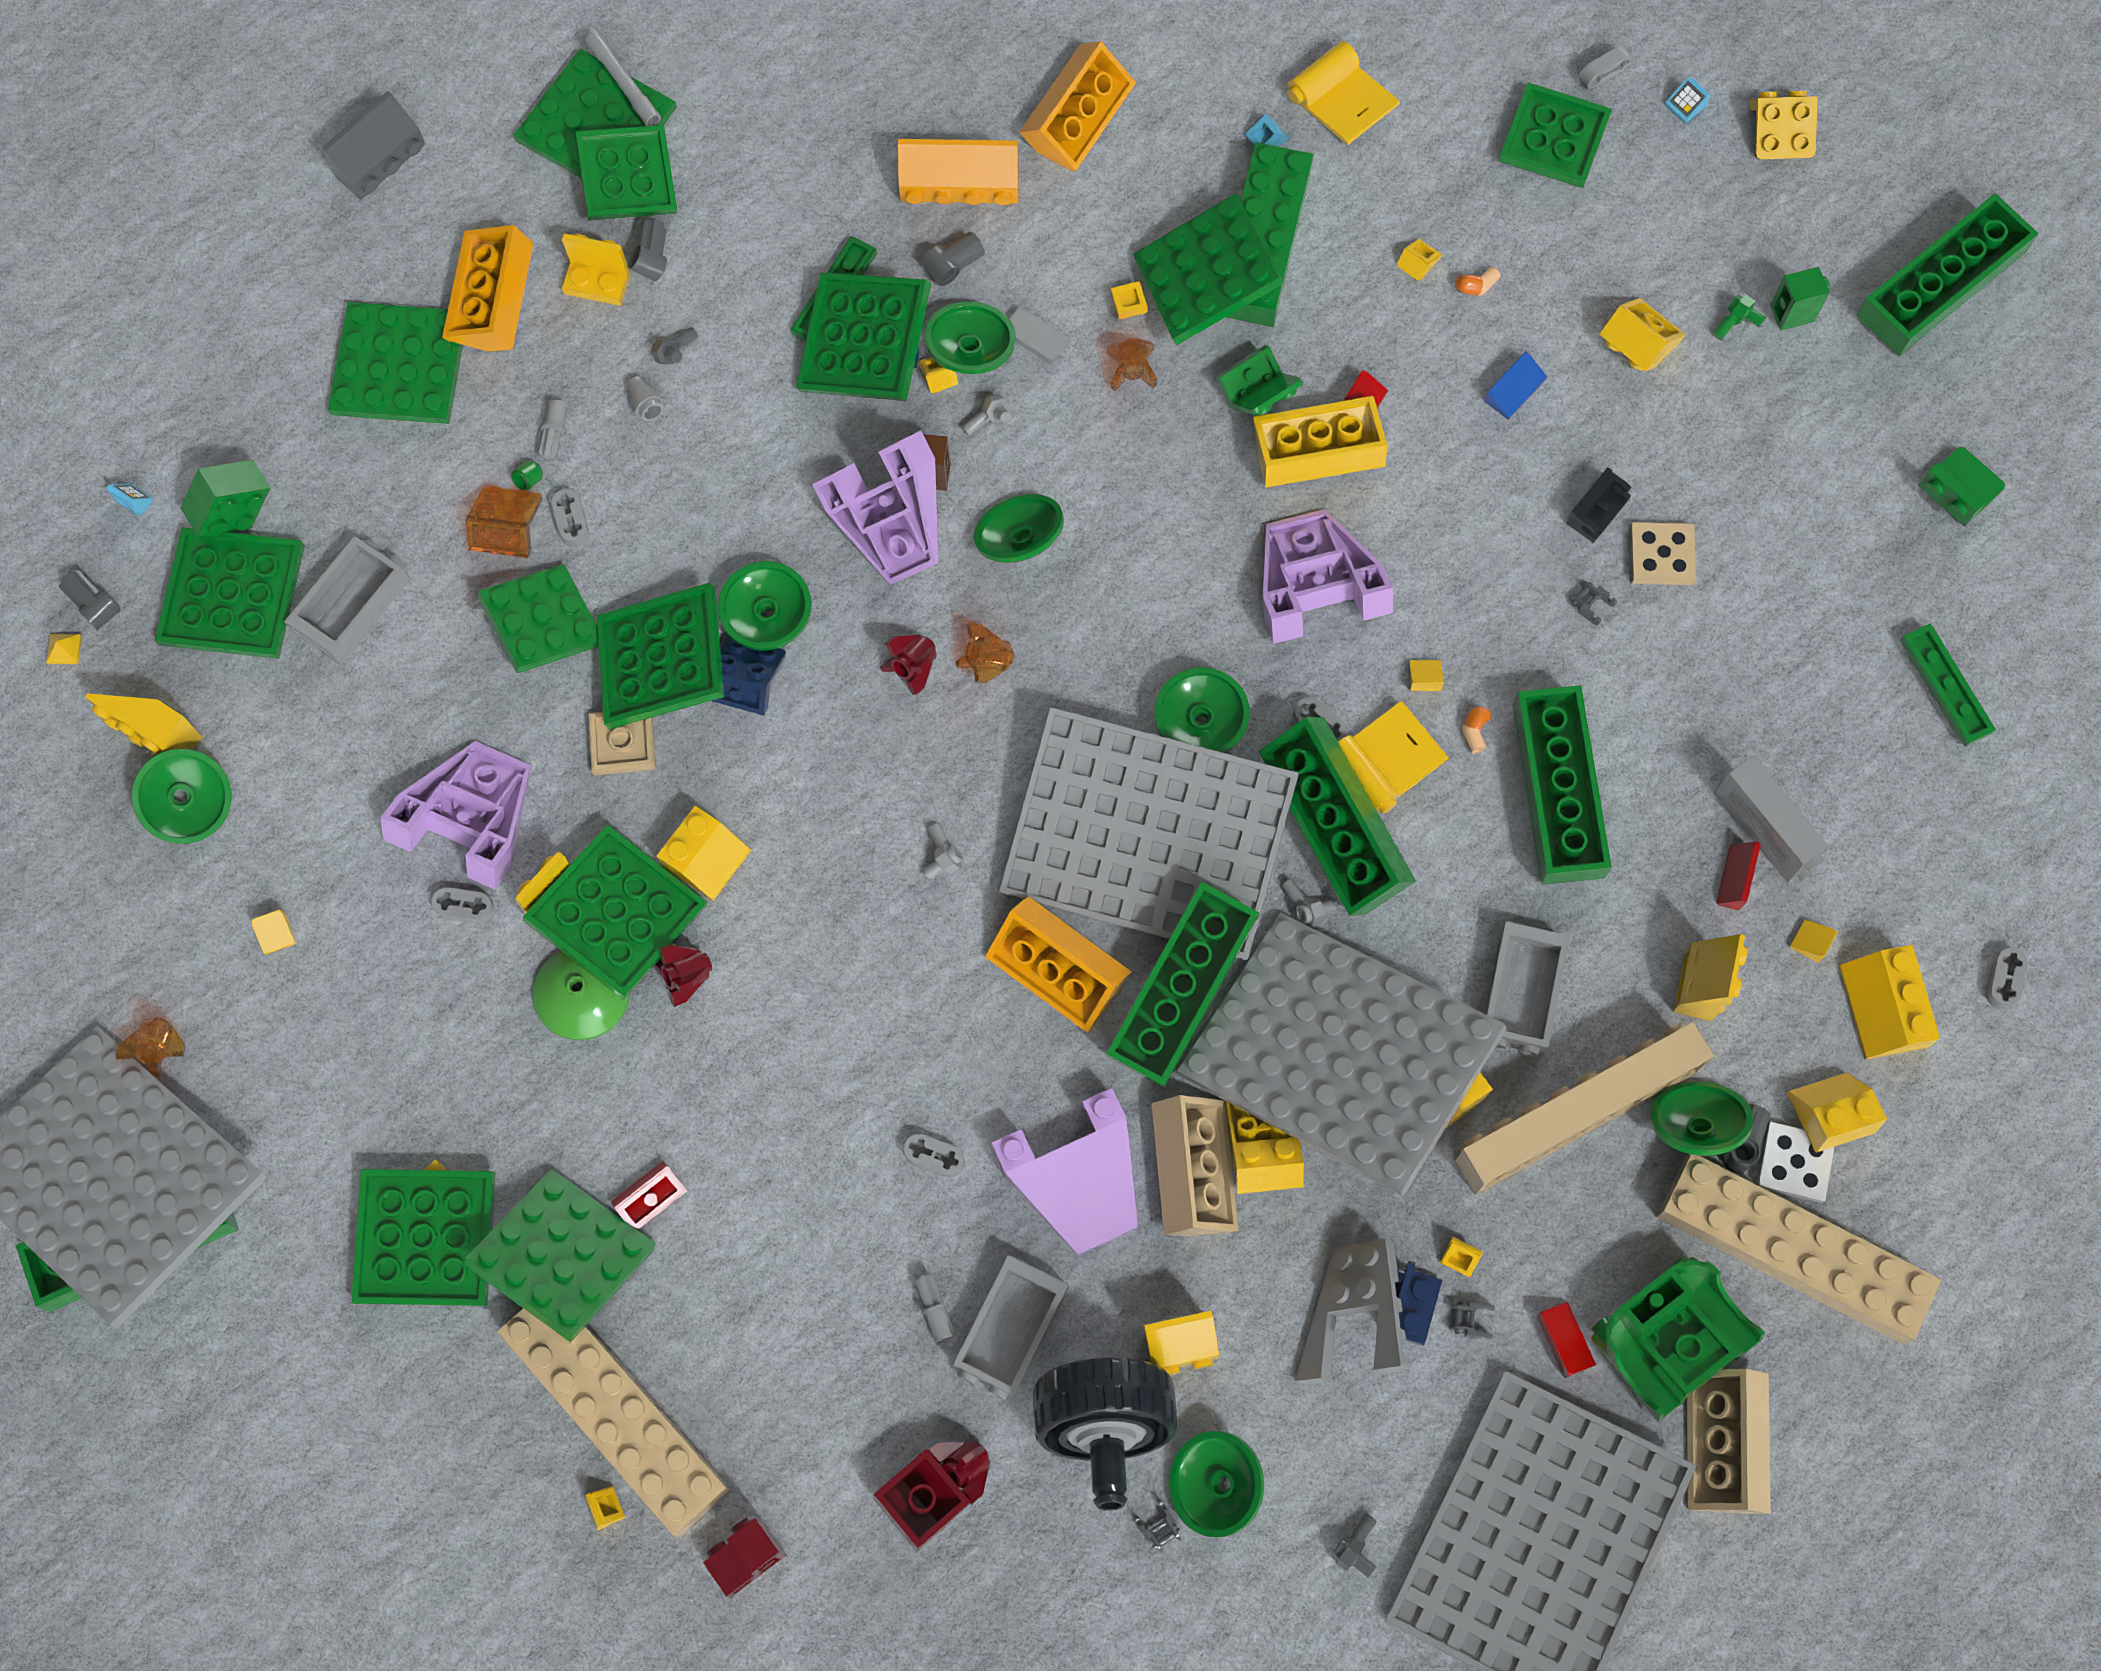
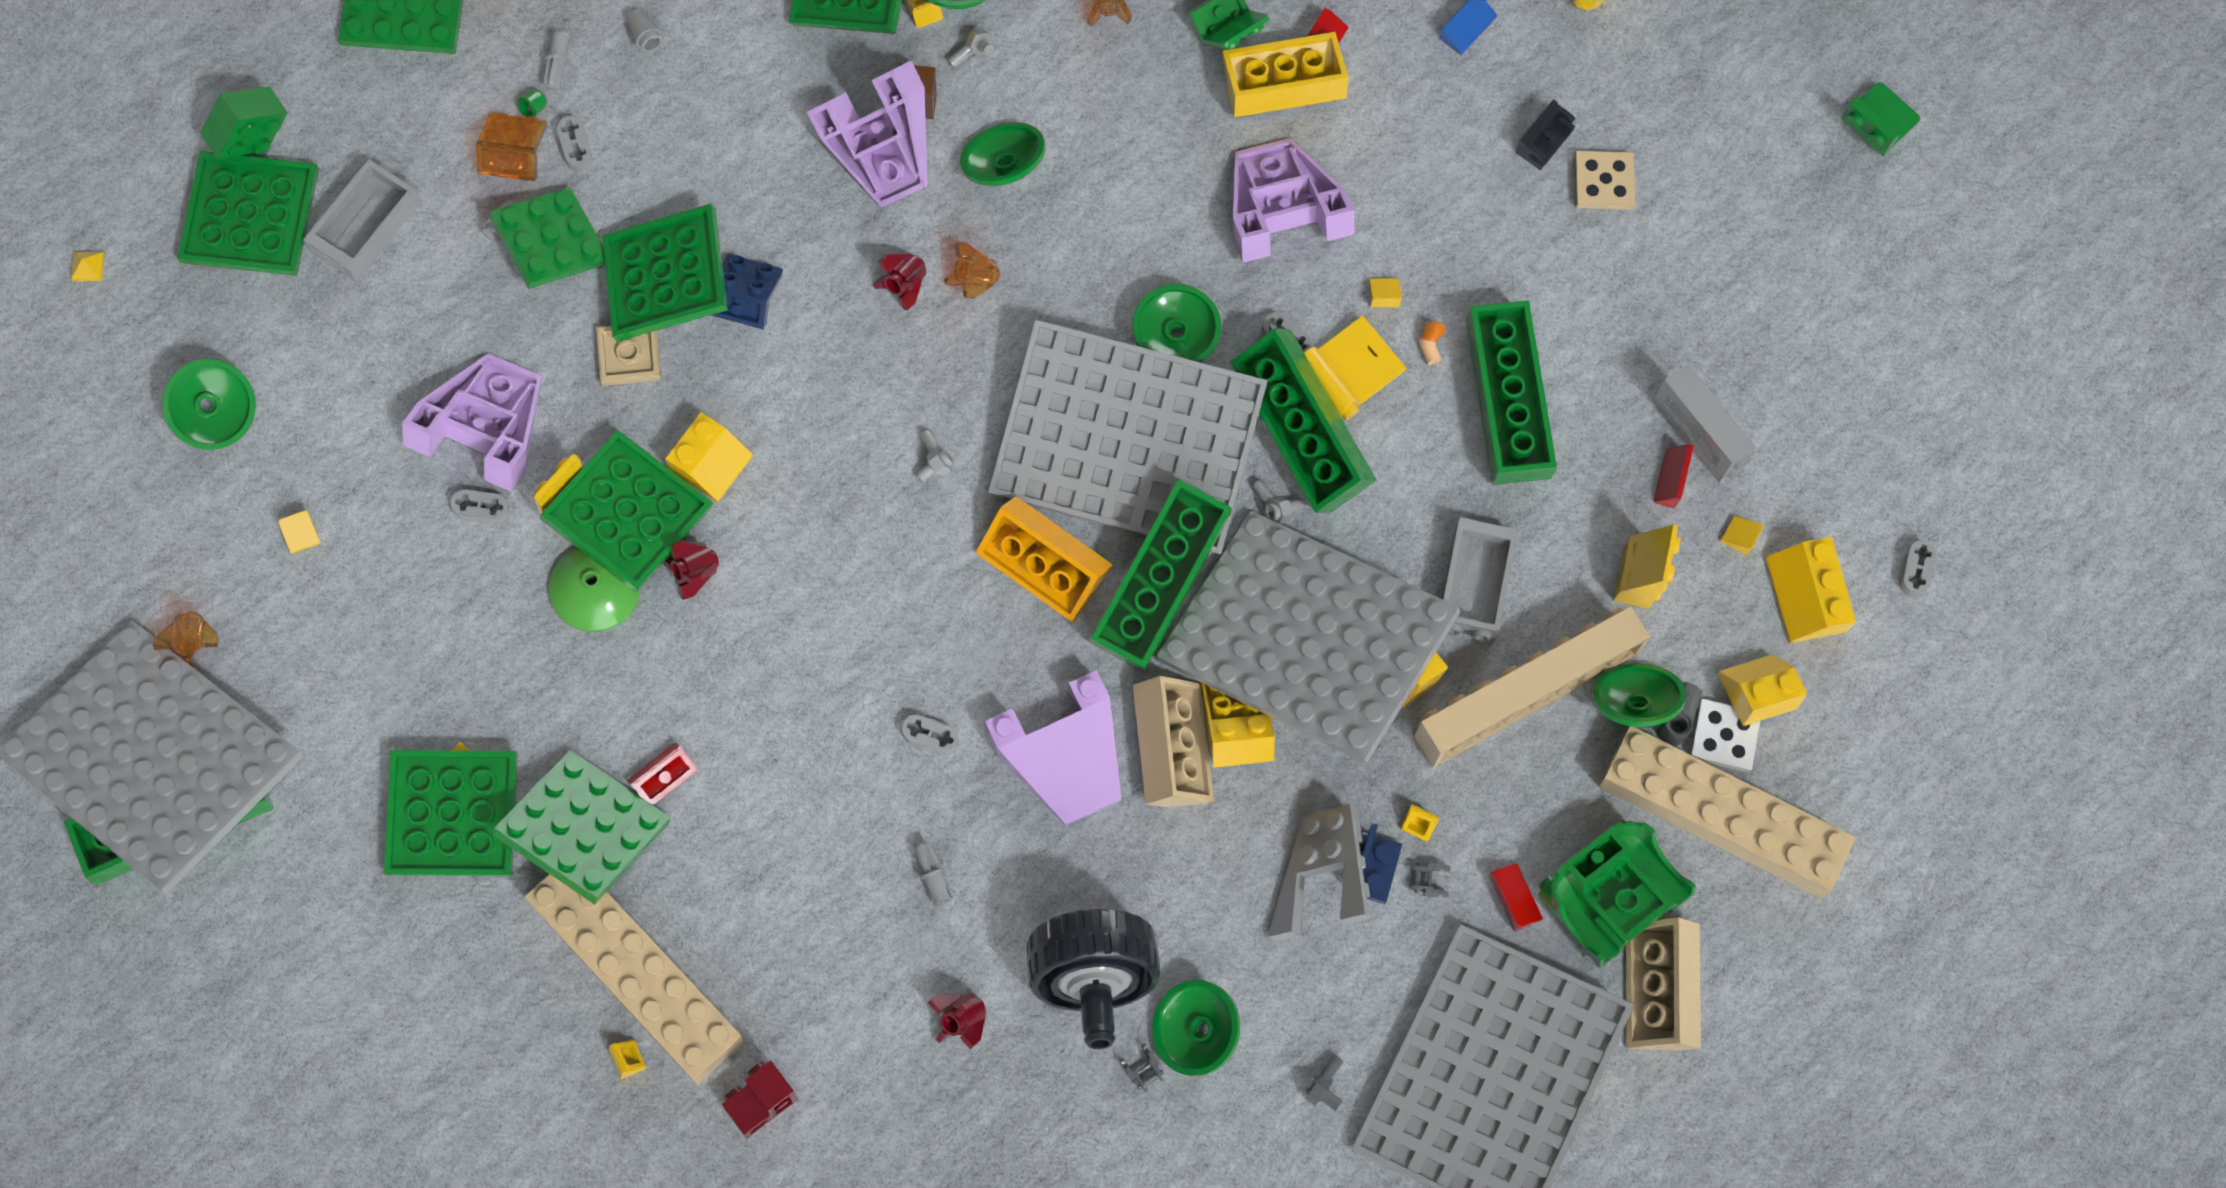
camera: 10 degrees left, 0 degrees up
(92, 603) = (115, 223): dark grey piece -> none
(130, 497) = (148, 123): medium azure slope -> none
(145, 722) = (171, 333): yellow slope -> none
(763, 588) = (761, 210): green dish -> none
(921, 1500) = (923, 1046): dark red slope -> none
(1010, 1328) = (1004, 890): piece -> none
(1182, 1342) = (1164, 899): yellow slope -> none
(1597, 593) = (1545, 217): dark grey piece -> none
(1948, 685) = (1866, 301): green plate -> none

